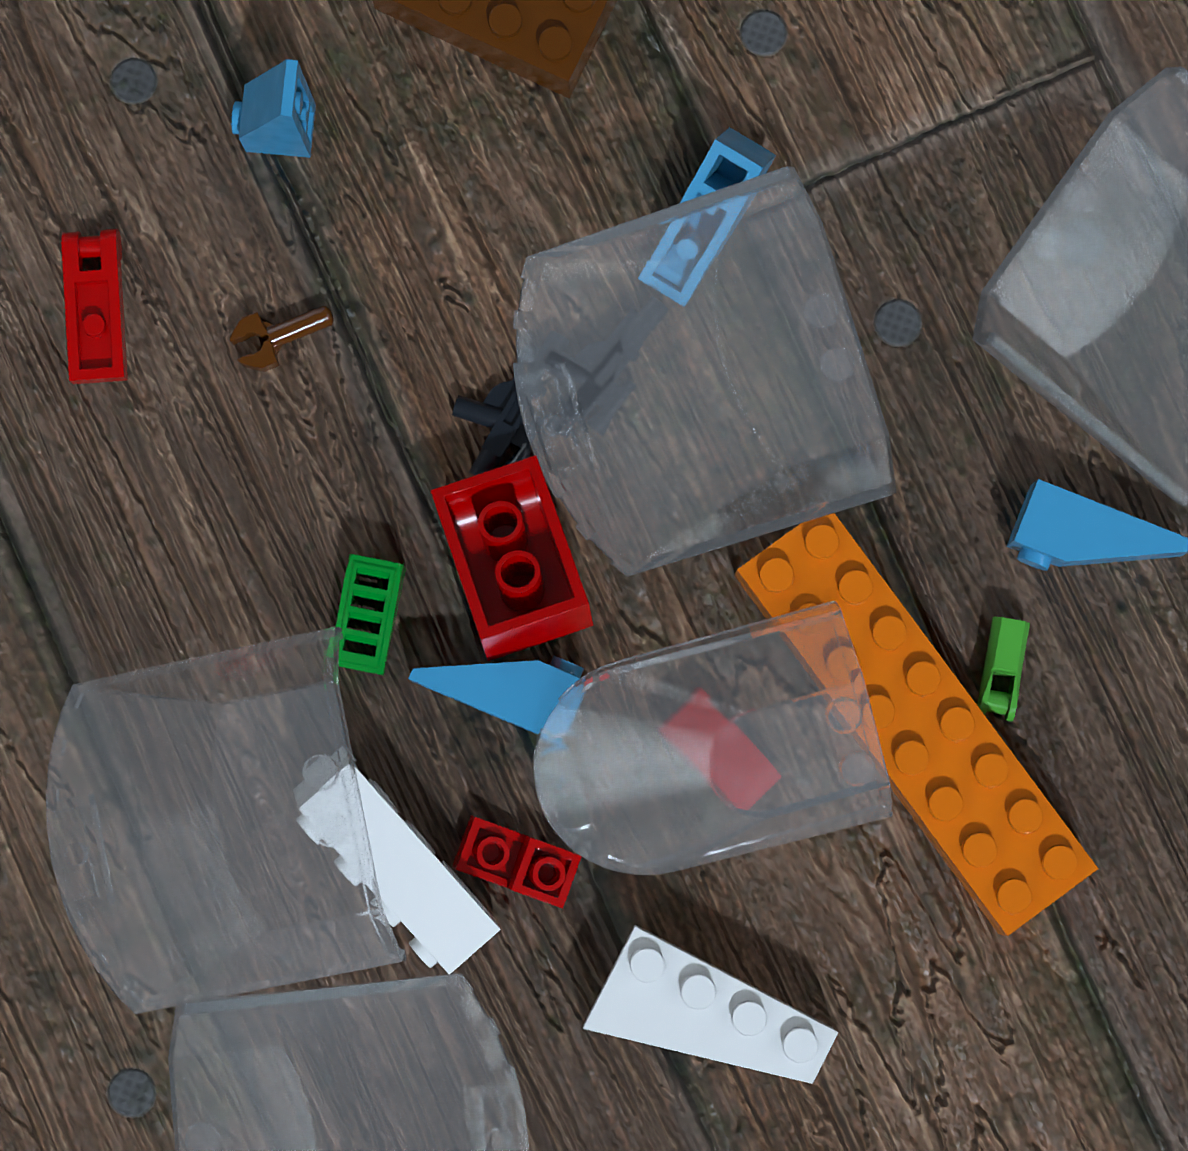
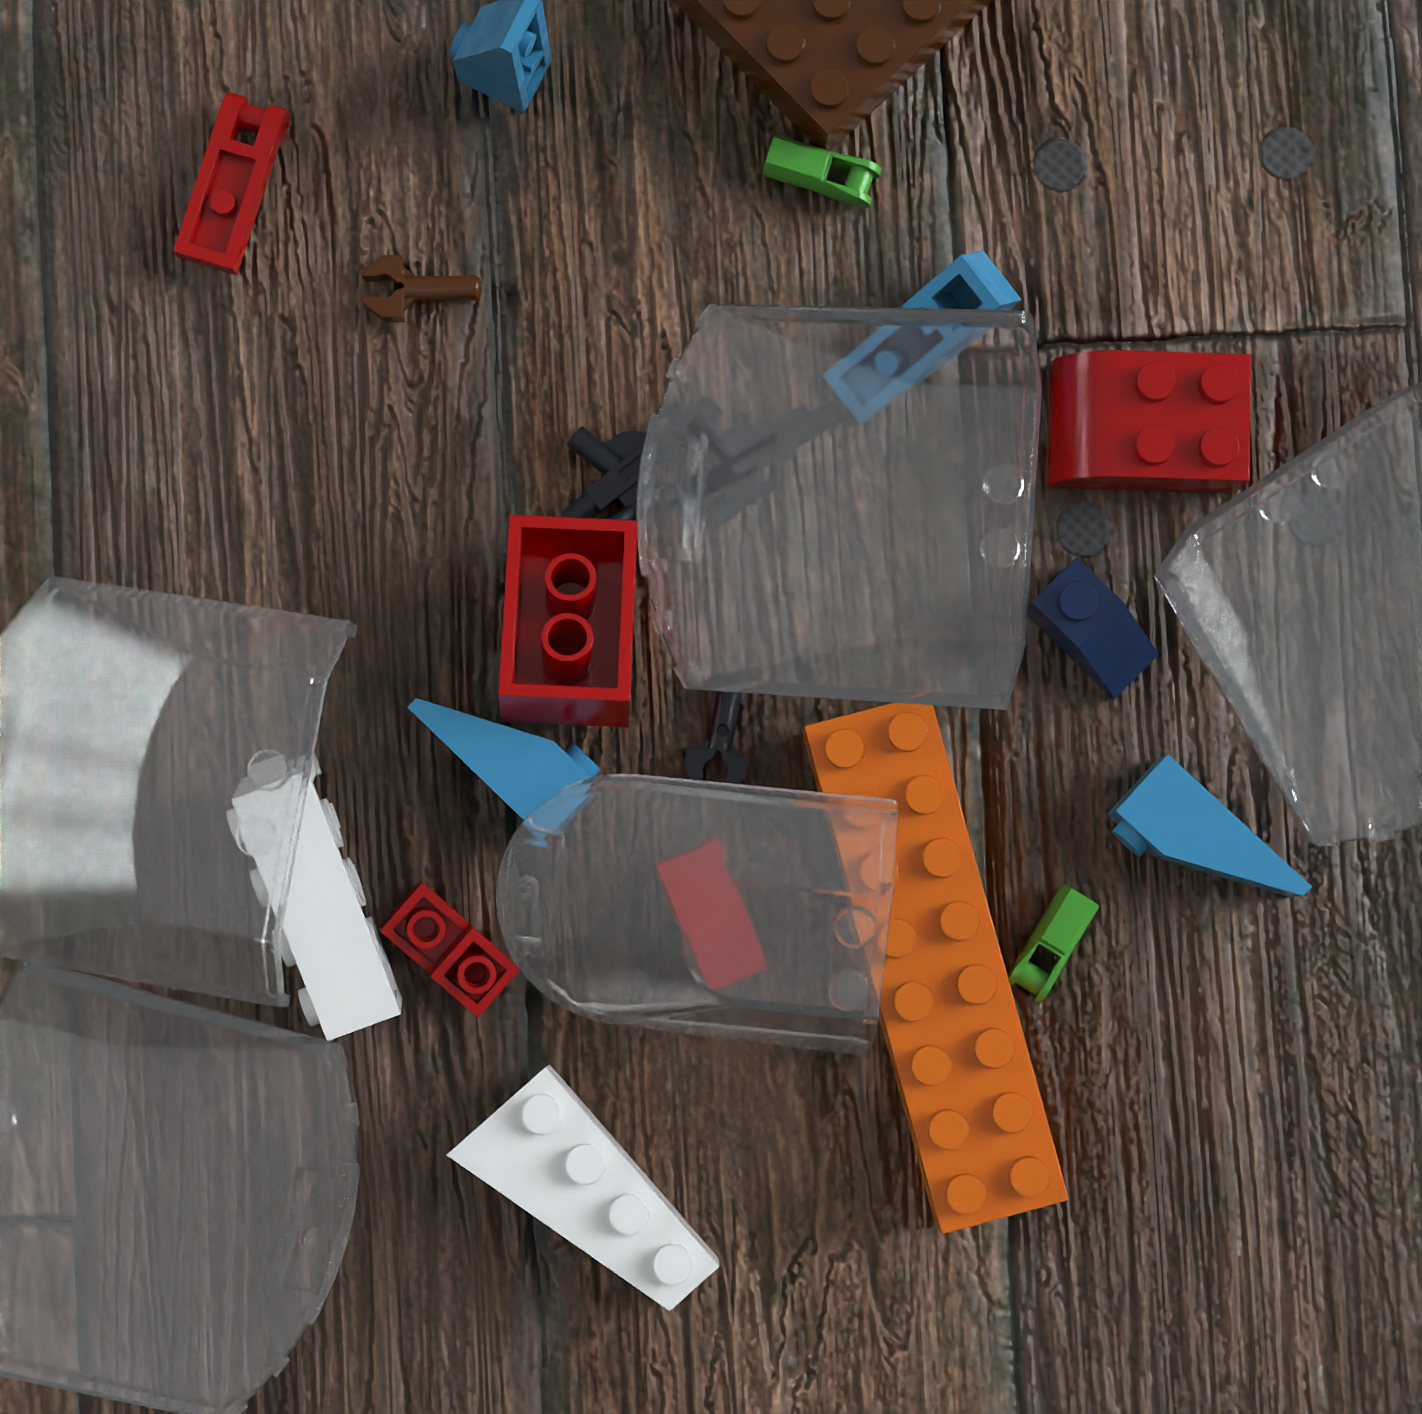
camera: 15 degrees right, 0 degrees up
(376, 568) = (386, 588): green slope -> none
(561, 112) = (810, 166): none -> bright green bar
(671, 607) = (720, 740): none -> black bar
(918, 214) = (1149, 421): none -> red brick
(937, 400) = (1093, 628): none -> dark blue slope

